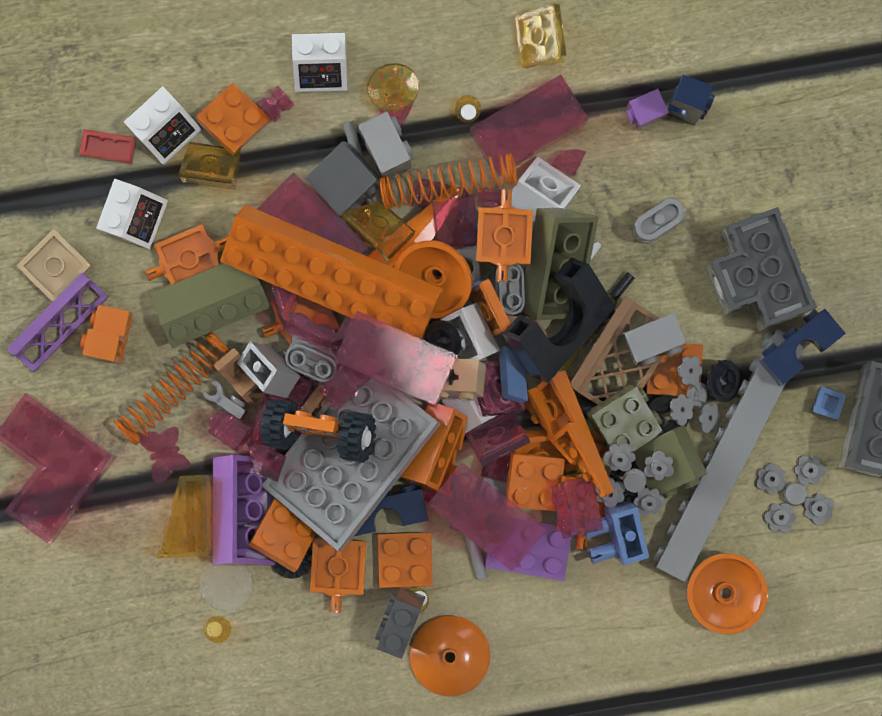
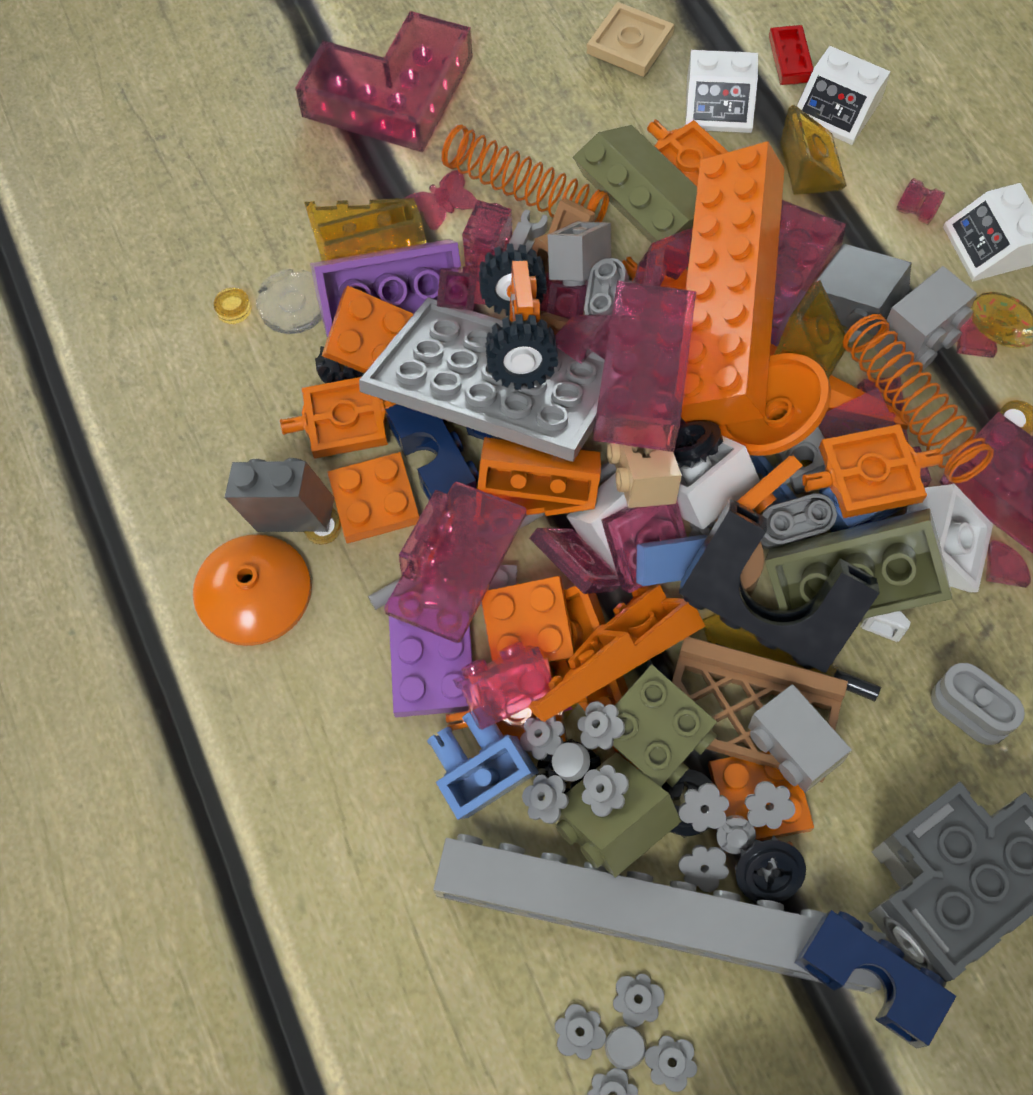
camera: 75 degrees right, 20 degrees down
(49, 317) = (572, 50): medium lavender fence -> none
(109, 335) = (564, 103): orange brick -> none
(232, 119) = (880, 163): orange plate -> none
(497, 469) = (534, 568): clear pink plate -> none
(746, 597) = (397, 961): orange dish -> none
(828, 403) = (793, 1064): medium blue plate -> none

